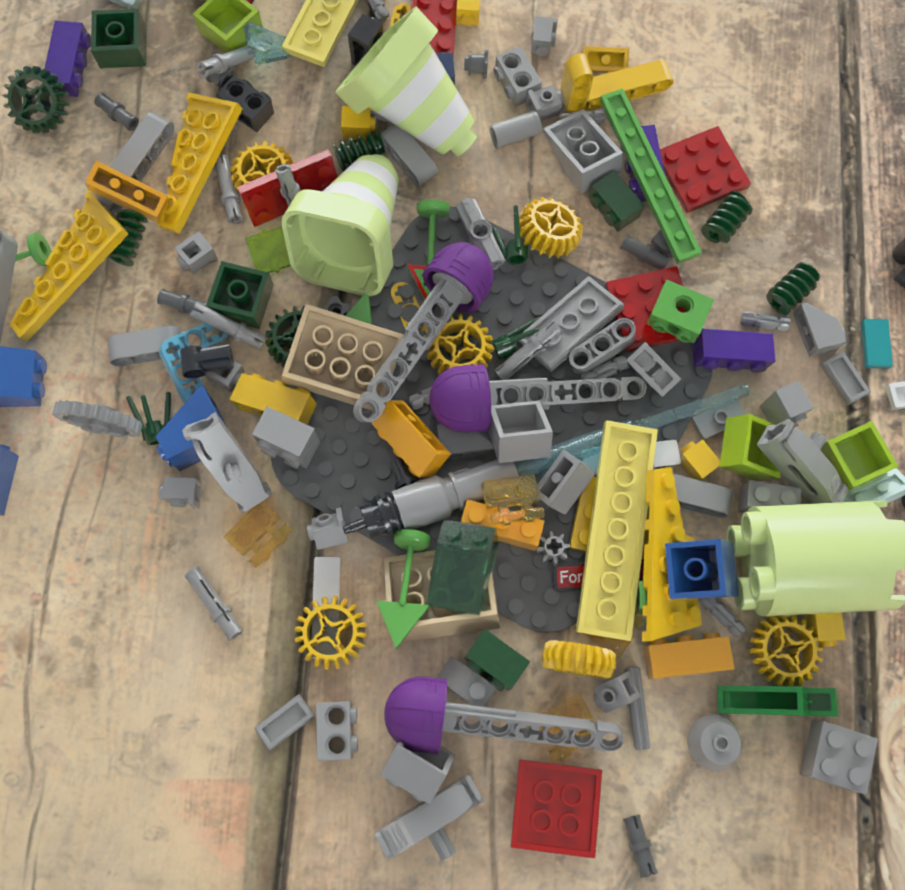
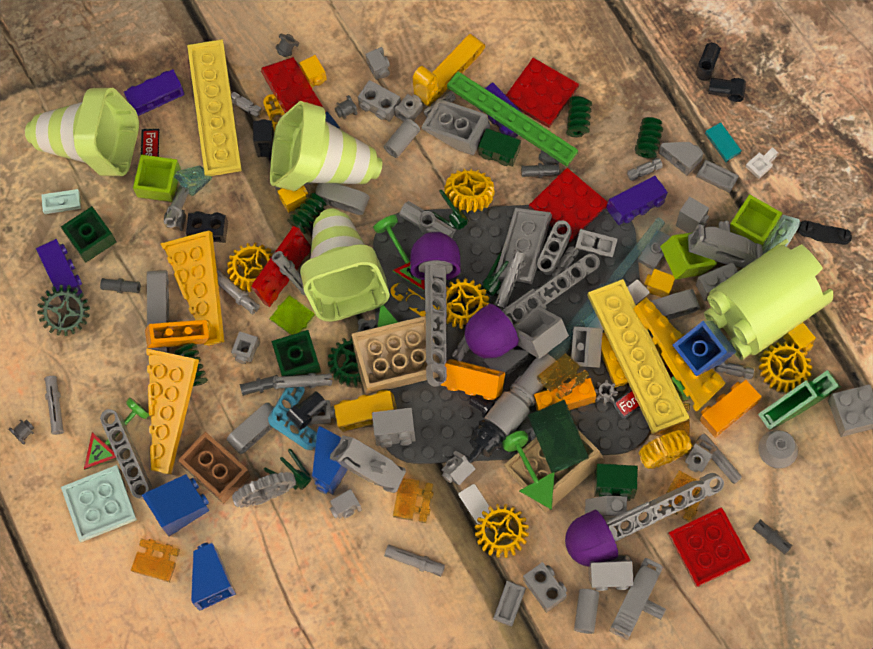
camera: 25 degrees left, 5 degrees down
(70, 361) = (214, 467): none -> medium nougat brick
(362, 792) = (586, 611): none -> light grey pin
(606, 58) = (428, 54): yellow slope -> none
(668, 319) = (581, 204): bright green brick -> none

